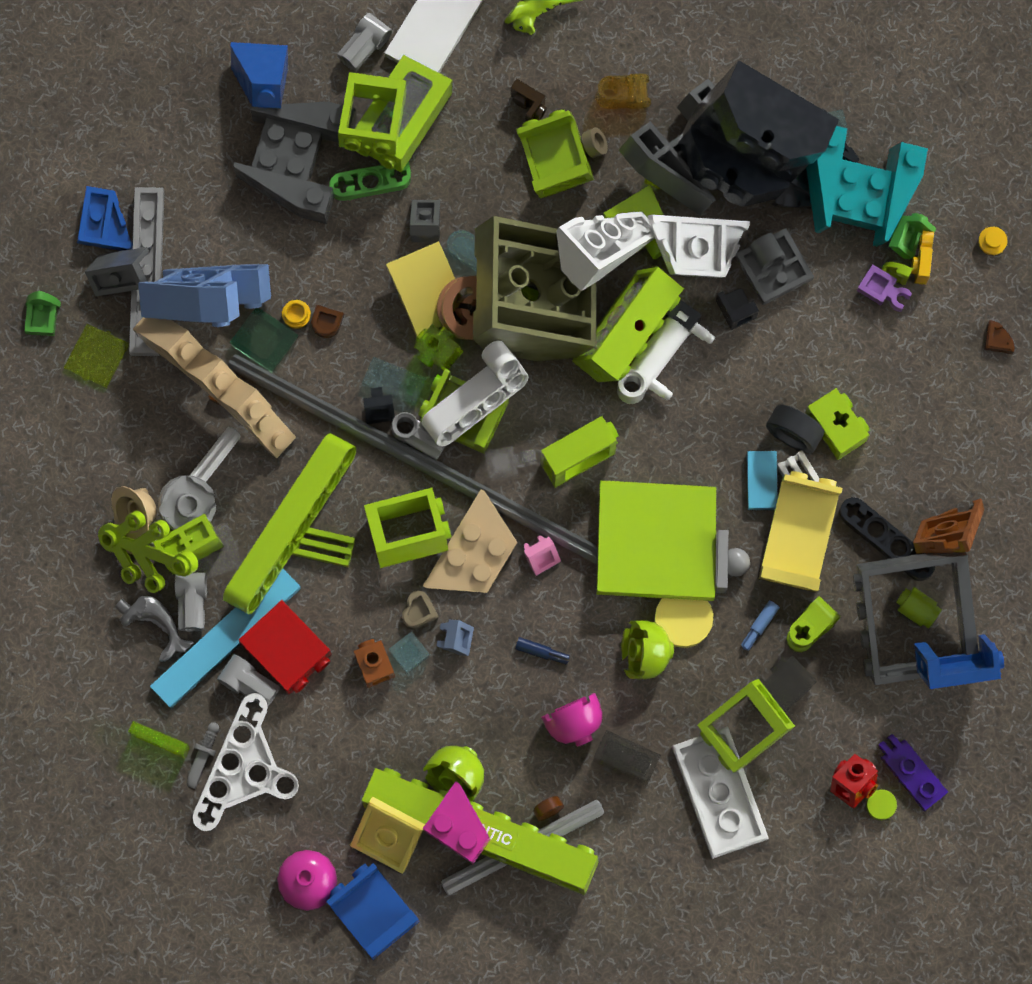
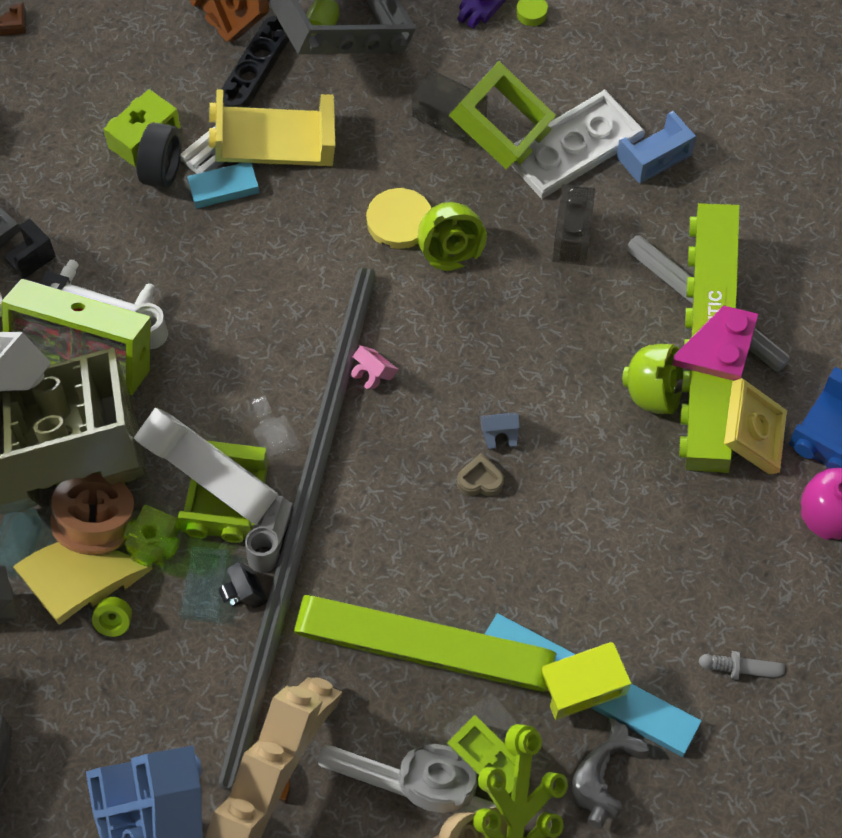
camera: 105 degrees left, 15 degrees down
(159, 739) = (747, 718): clear neon green tile -> none
(190, 593) = (564, 735): light grey piece -> none
(219, 625) = (585, 680): none -> neon yellow panel
(238, 782) = (760, 610): white beam -> none
(242, 678) = (636, 633): light grey piece -> none
(264, 339) = (207, 739): clear green piece -> none
(286, 648) = (579, 601): red panel -> none
(296, 314) = (144, 725): yellow plate -> none
(326, 321) = (146, 687): reddish brown tile -> none
(330, 547) = (436, 575): lime tile -> none
(374, 662) = (562, 502): dark orange brick -> none
(386, 307) = (112, 616): none -> lime tile
(409, 652) = (534, 470): clear light blue plate -> none
(412, 547) = (408, 534): lime window -> none
(475, 550) = (391, 435): tan wing -> none
(540, 650) = (483, 343): dark blue pin -> none
(548, 808) = (656, 285): reddish brown tile -> none
(575, 721) = (550, 279): dark pink cylinder -> none
(579, 451) = (243, 348): lime window -> none
(656, 540) = (322, 258): lime tile -> none
(688, 859) = (657, 151): none -> medium blue panel
(731, 562) = (326, 191): light grey tile -> none
(760, 624) = (381, 150): medium blue pin -> none
(815, 622) = (368, 100): lime piece -> none
(854, 780) = (519, 26): red brick -> none

